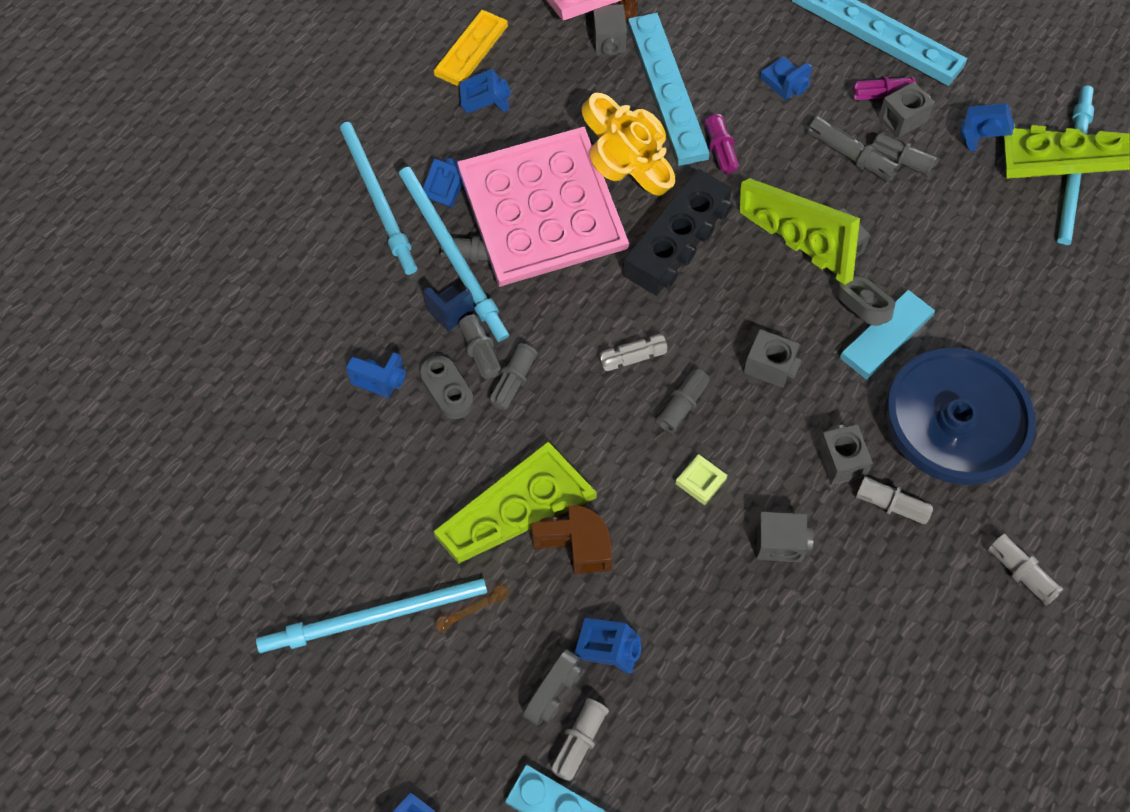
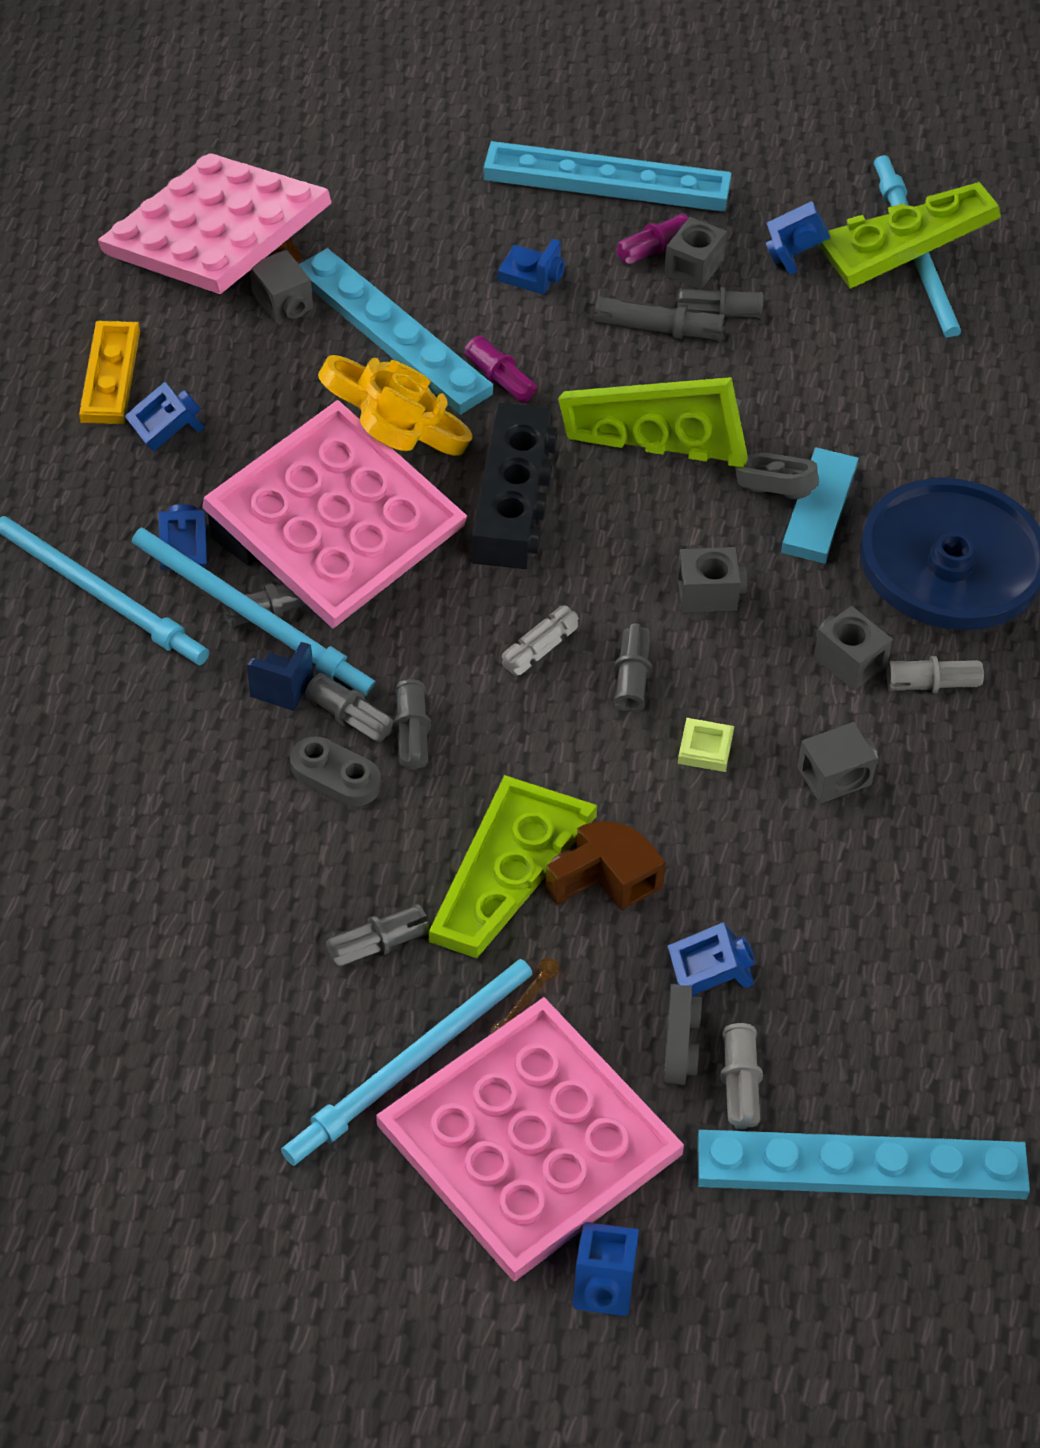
camera: 30 degrees left, 10 degrees down
(375, 378) = (240, 794): blue bracket -> none
(401, 517) = (377, 936): none -> dark grey axle
(413, 712) = (529, 1137): none -> bright pink plate

